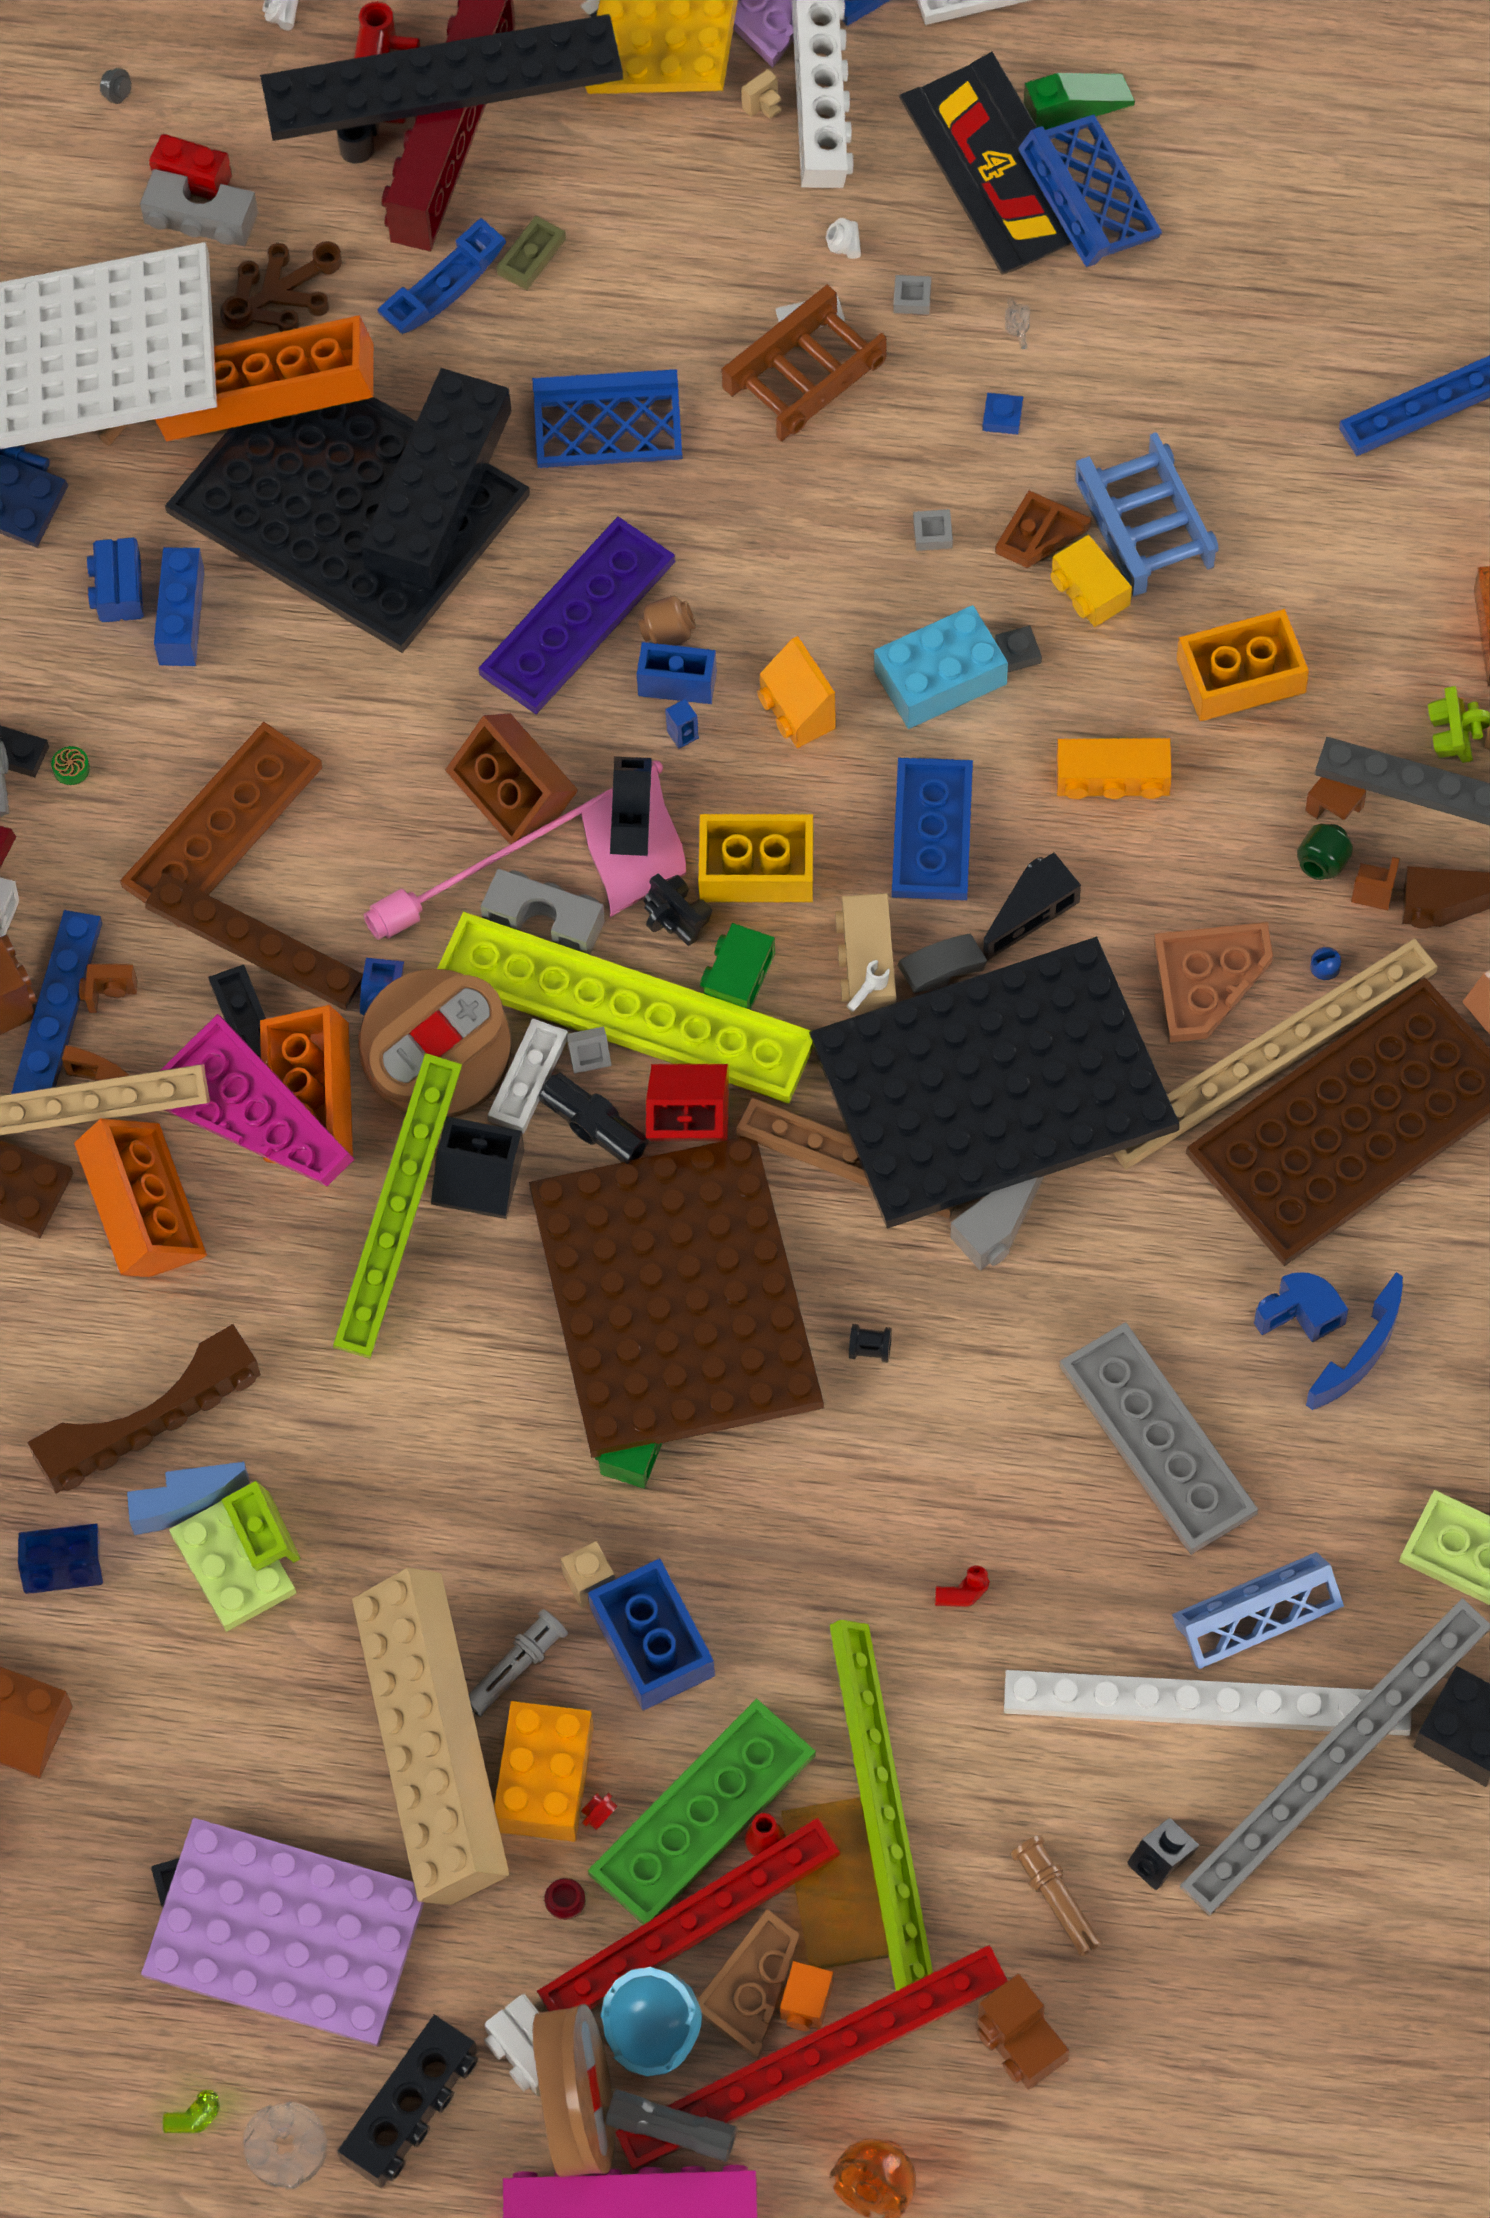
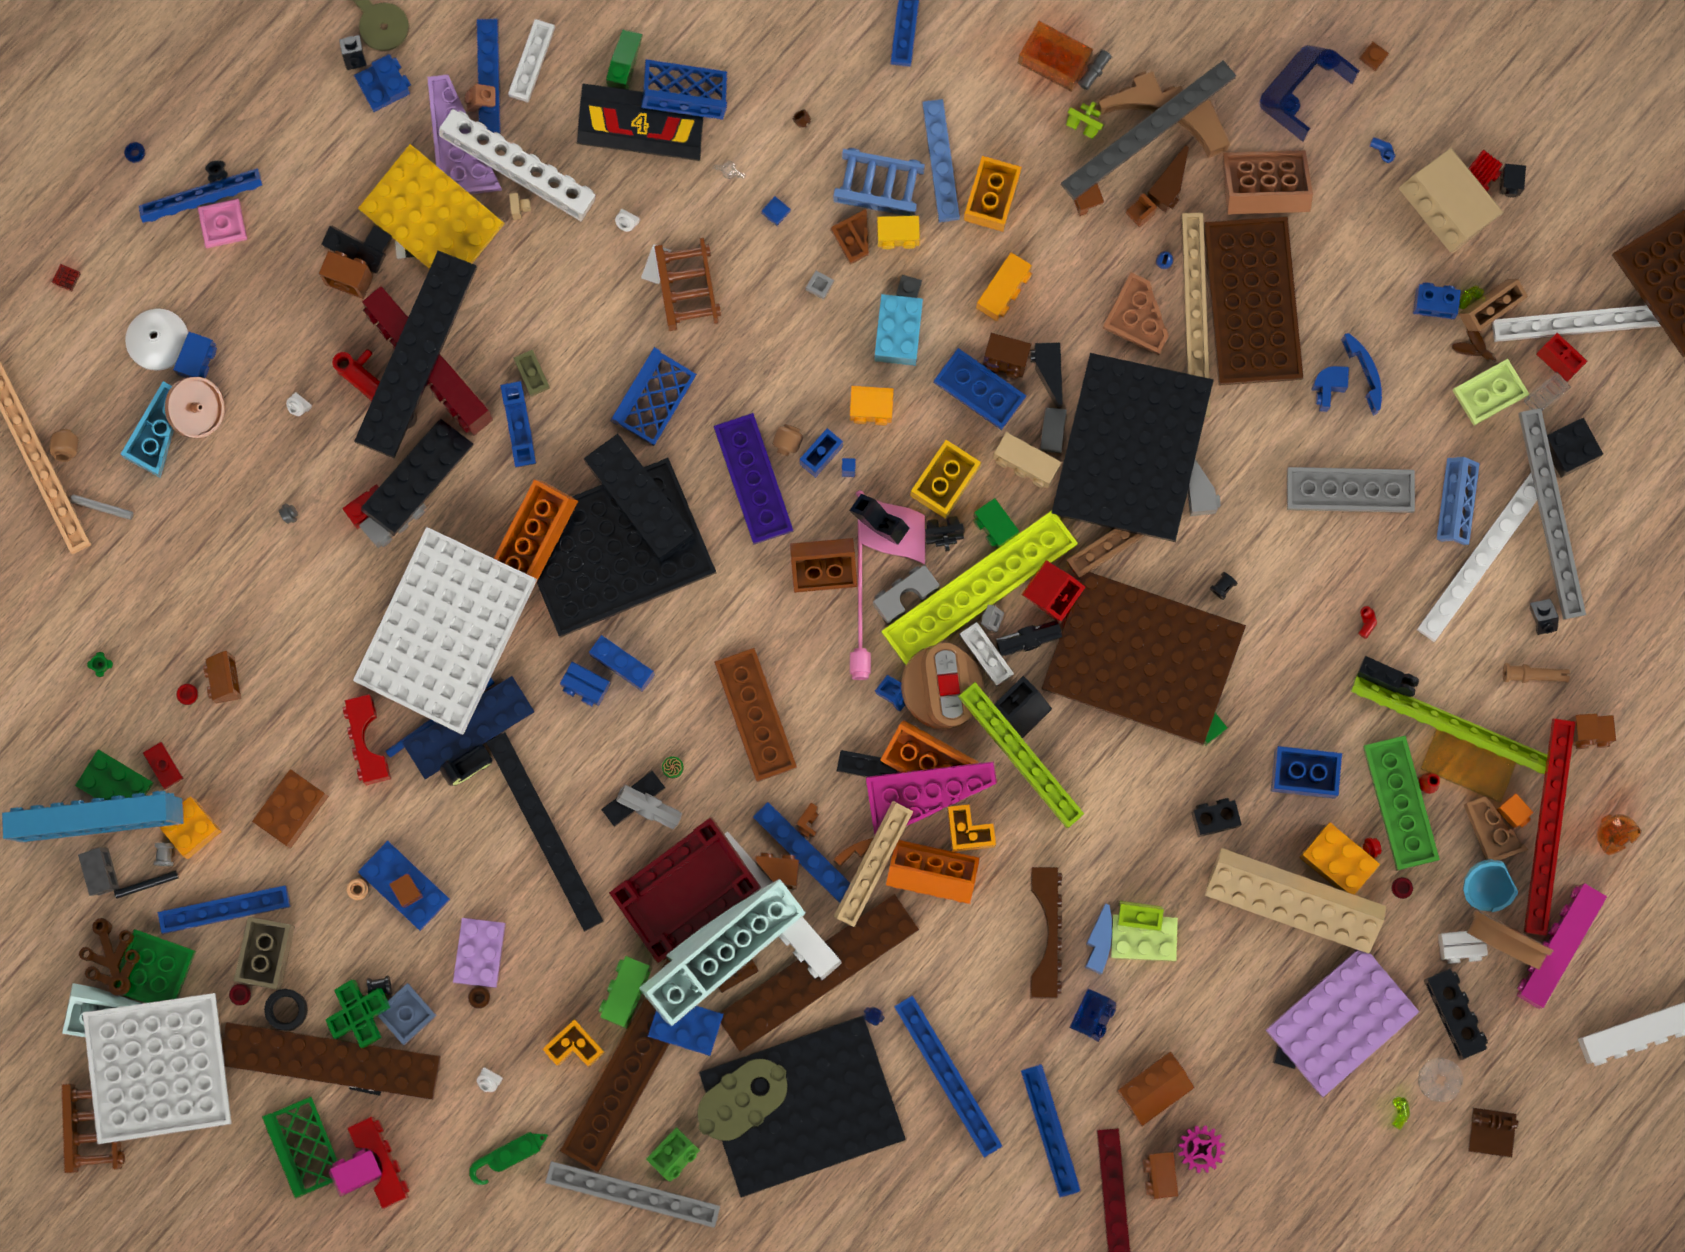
camera: 60 degrees left, 15 degrees up
(225, 1203) = (966, 836): none -> light orange brick
(254, 941) = (831, 737): reddish brown plate -> none
(273, 195) = (417, 477): none -> black plate
(279, 290) = (467, 508): reddish brown plant -> none
(483, 1554) = (1217, 823): none -> black brick
(533, 1653) = (1275, 831): light grey pin -> none
(586, 1571) = (1257, 782): tan brick -> none
(671, 2125) = (1545, 905): dark grey axle -> none
(695, 1917) = (1450, 841): red plate -> none
(871, 983) = (1049, 469): white hand -> none
(893, 1669) = (1387, 677): none -> black hinge
(912, 294) = (682, 209): light grey plate -> none
(1004, 824) = (1006, 355): none -> reddish brown brick
(1165, 362) = (801, 118): none -> reddish brown hinge
(1246, 575) = (940, 160): none -> medium blue plate
(1324, 851) = (1112, 222): dark green head -> none

